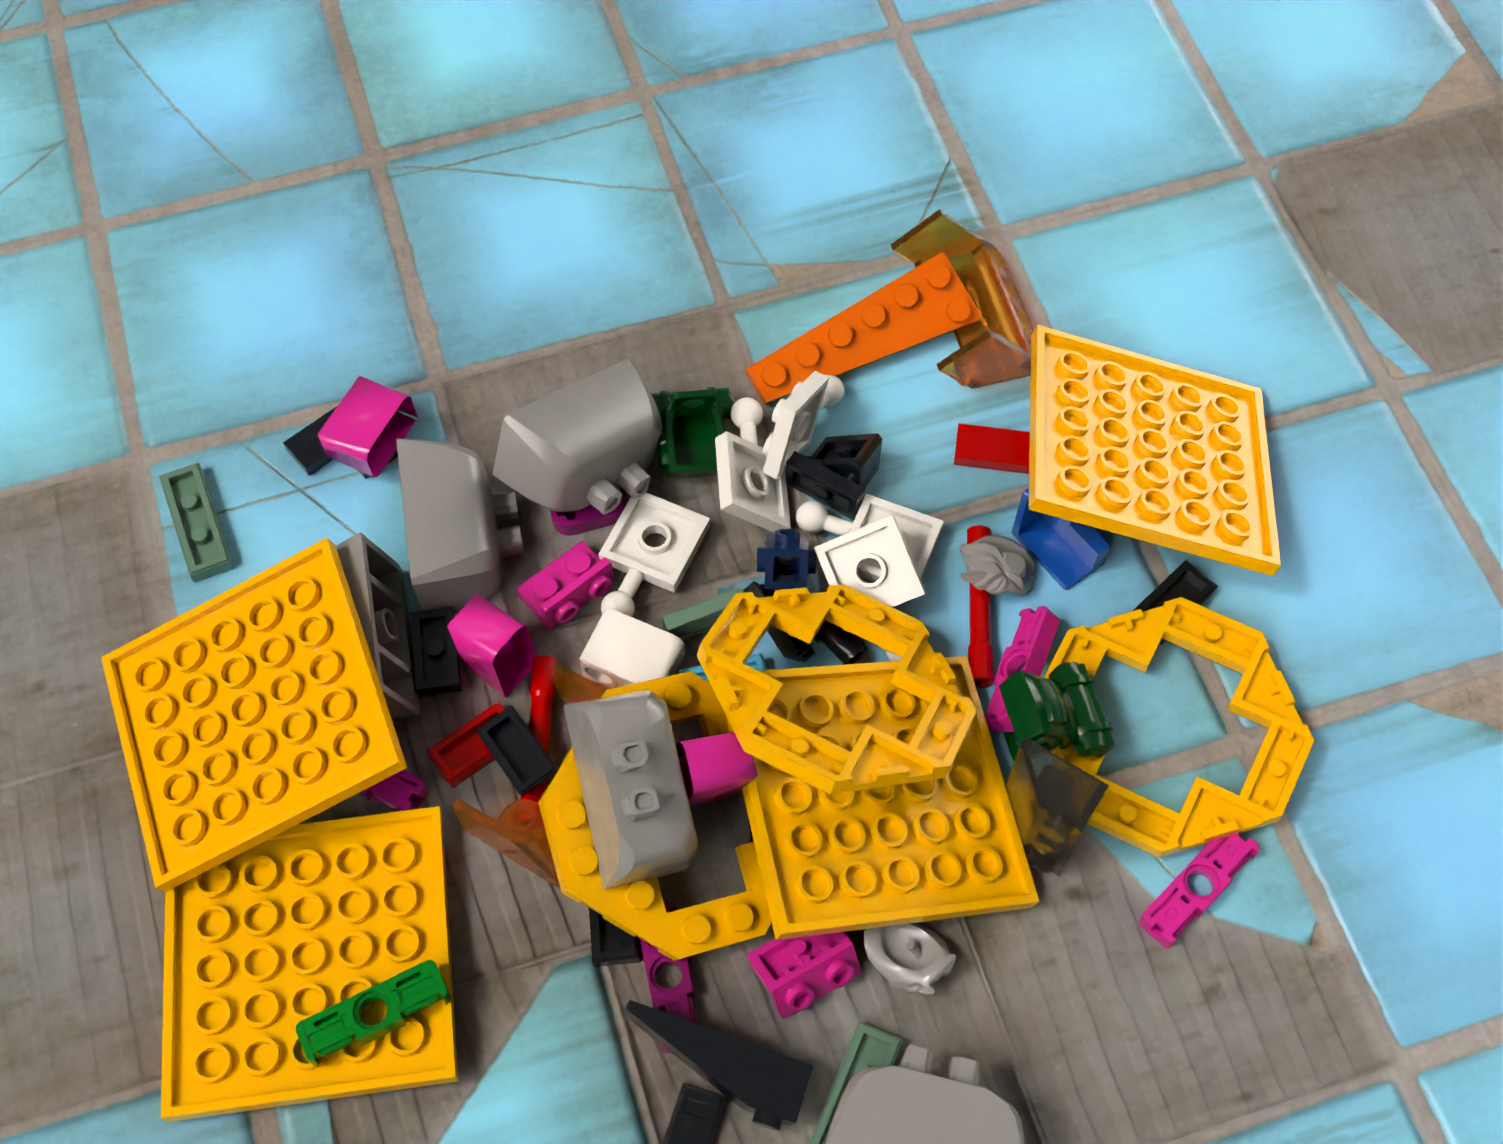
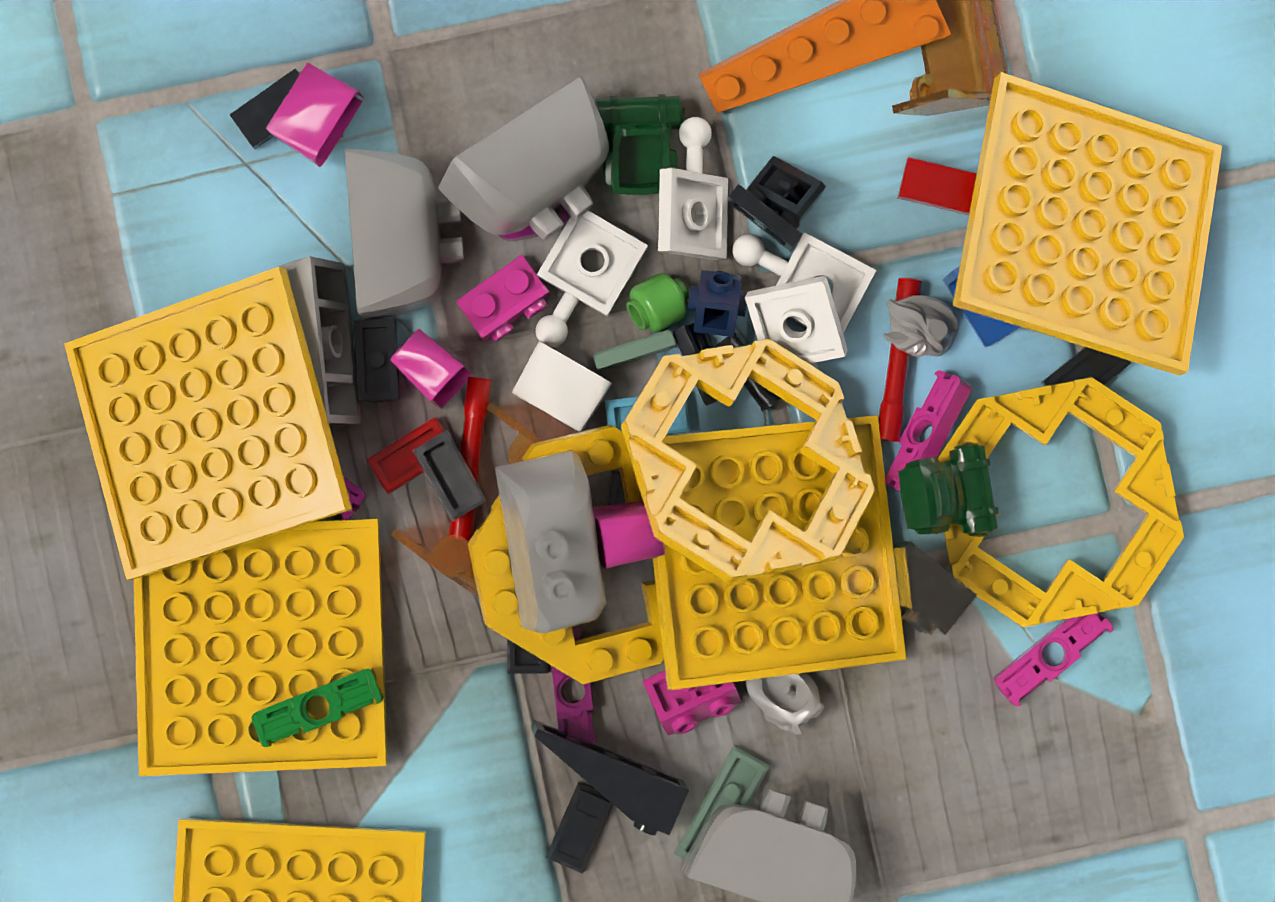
camera: 10 degrees right, 25 degrees up
(196, 522) = (145, 193): sand green tile -> none
(724, 568) = (658, 303): none -> bright green head
(797, 419) = (738, 158): white plate -> none

